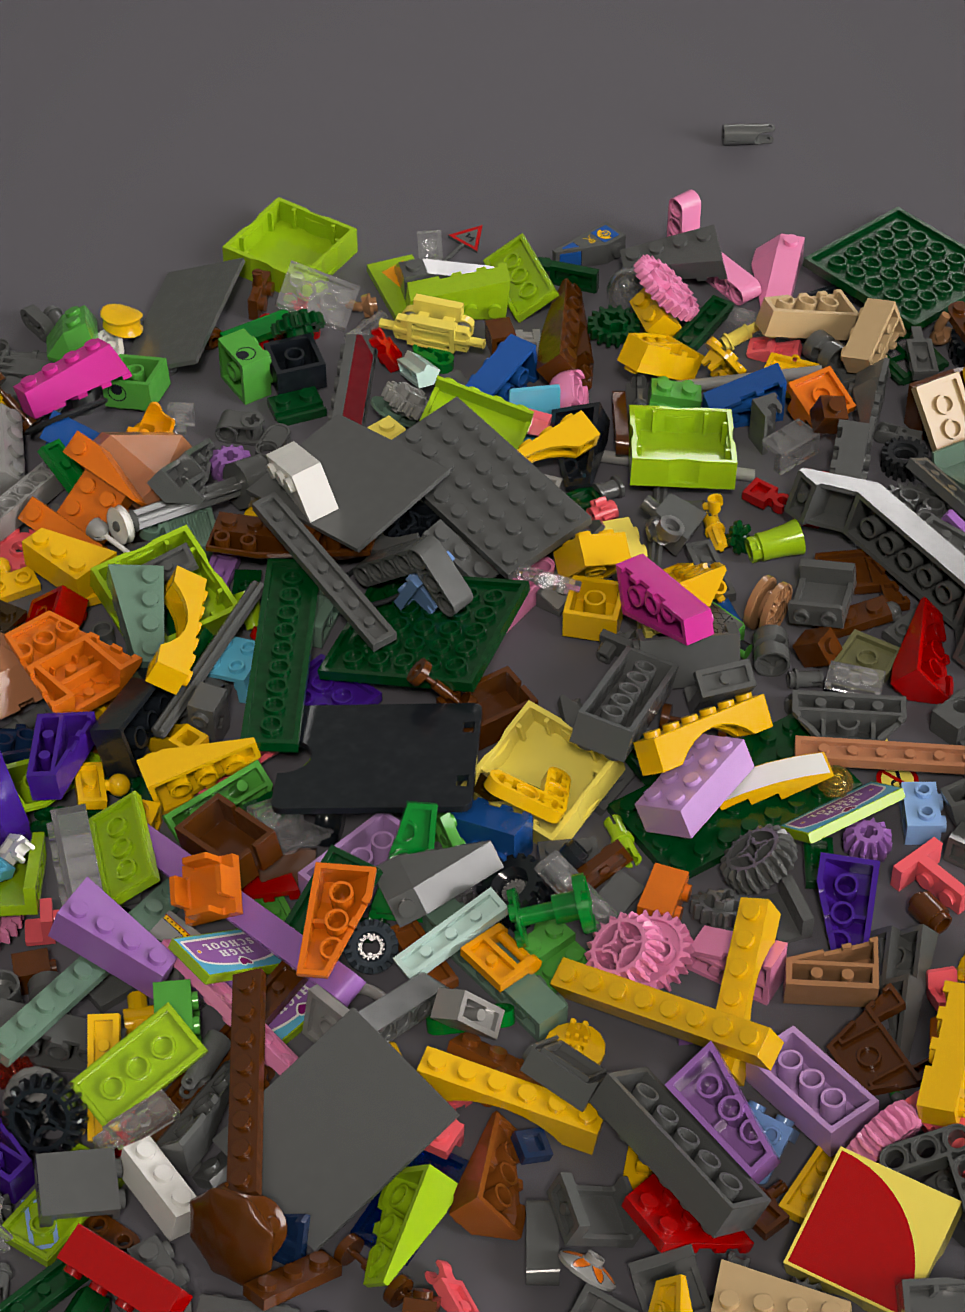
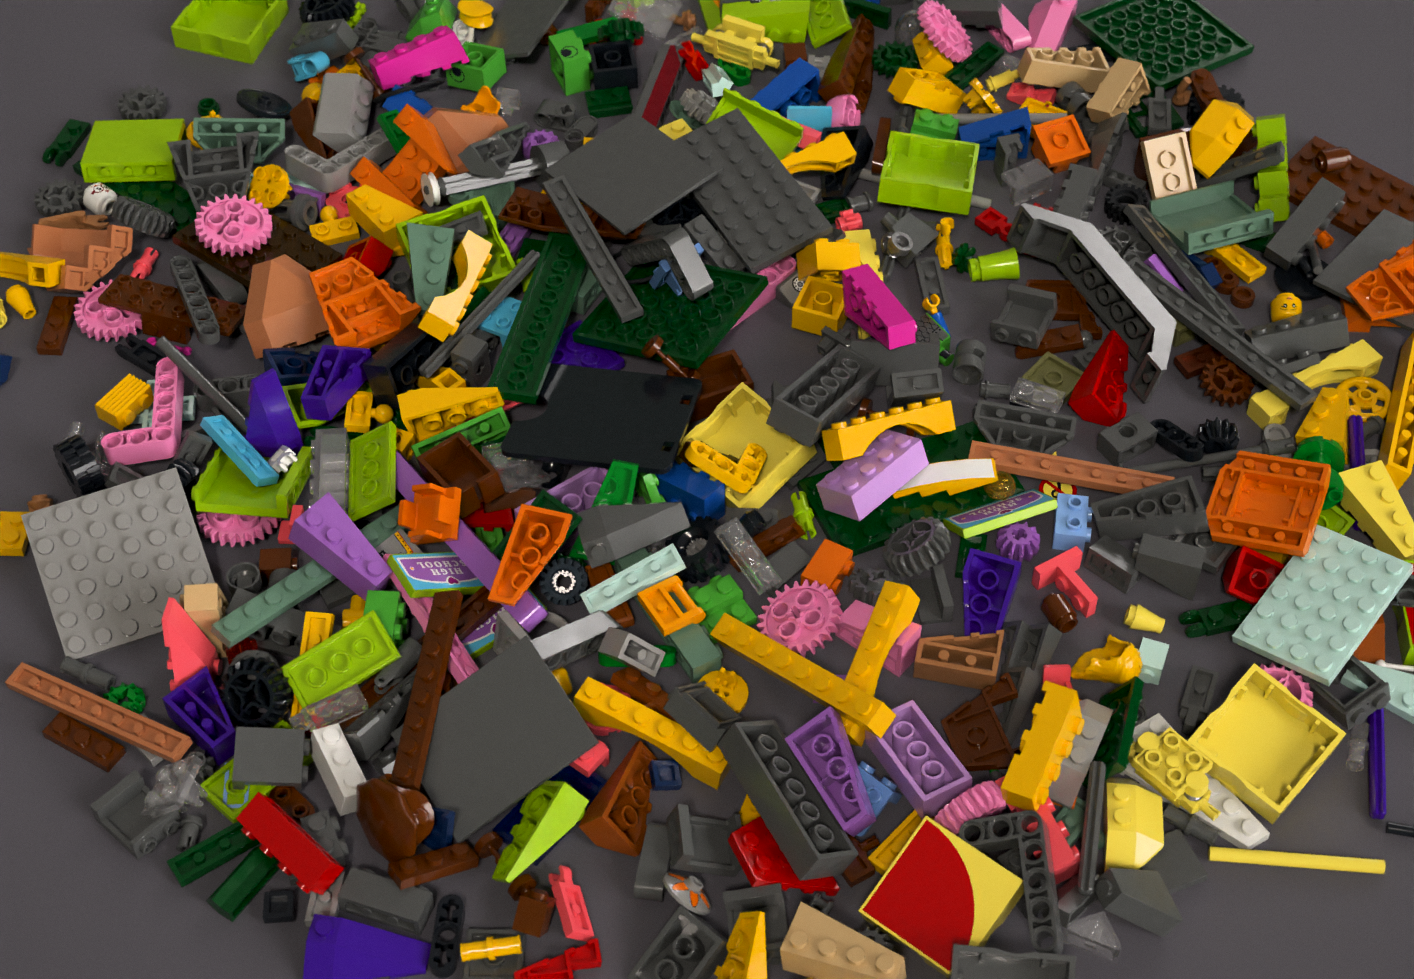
camera: 10 degrees right, 5 degrees up
(99, 531) = (413, 192): light grey hinge -> none
(302, 479) = (589, 167): white wedge -> none
(547, 579) = (783, 276): clear plate -> none
(563, 907) = (730, 570): green piece -> none
(617, 946) = (774, 609): bright pink gear -> none
(698, 579) = (912, 292): yellow wedge -> none
(767, 603) = (973, 319): medium nougat wheel -> none
(817, 647) = (1010, 363): reddish brown brick -> none
(827, 412) = (1061, 156): reddish brown brick -> none

